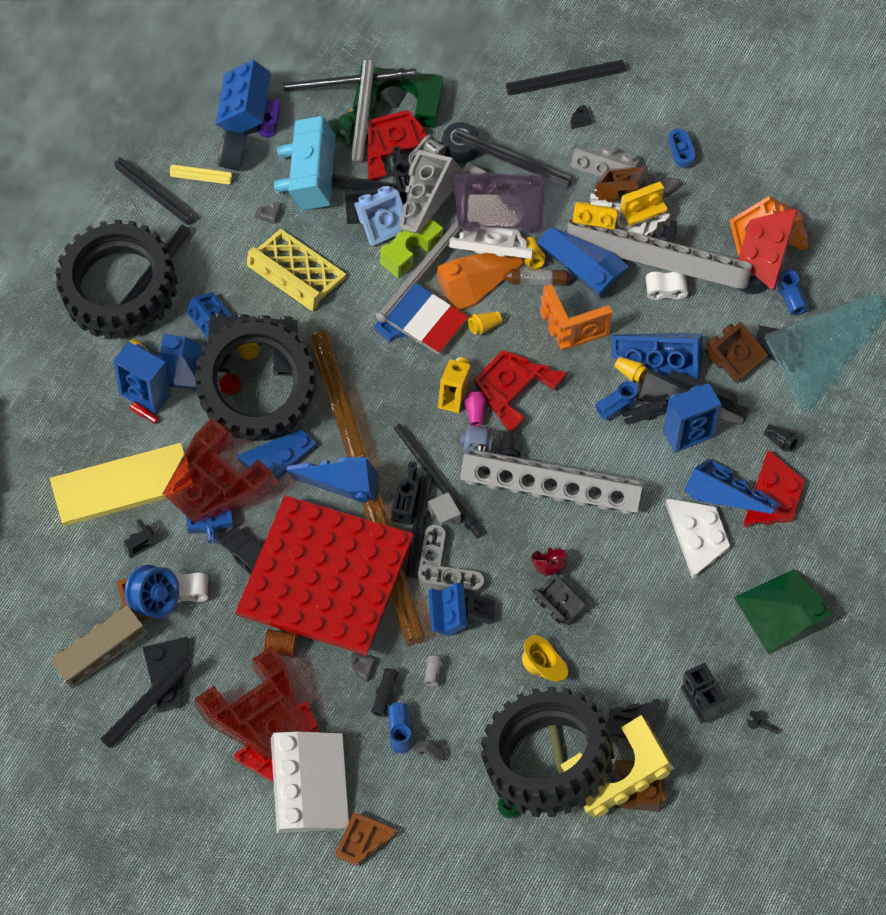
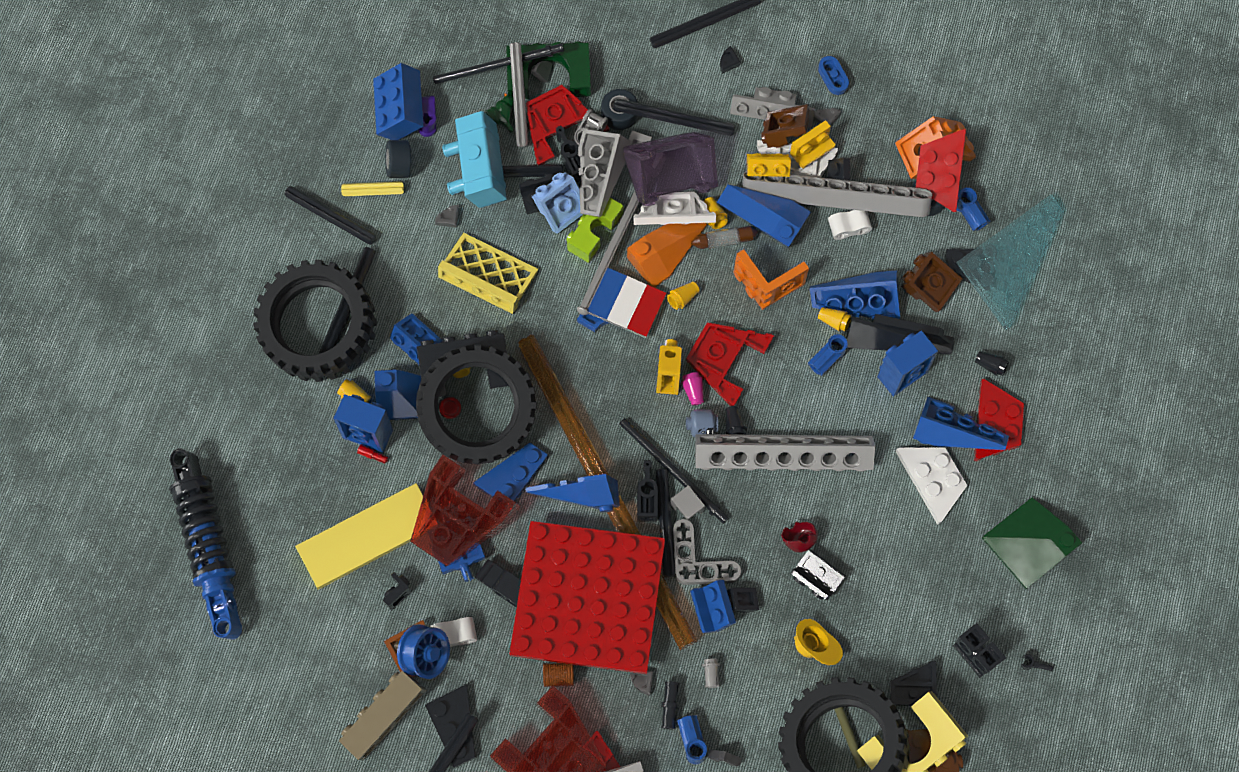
camera: 10 degrees left, 10 degrees up
(644, 411) = (857, 360): black pin -> none

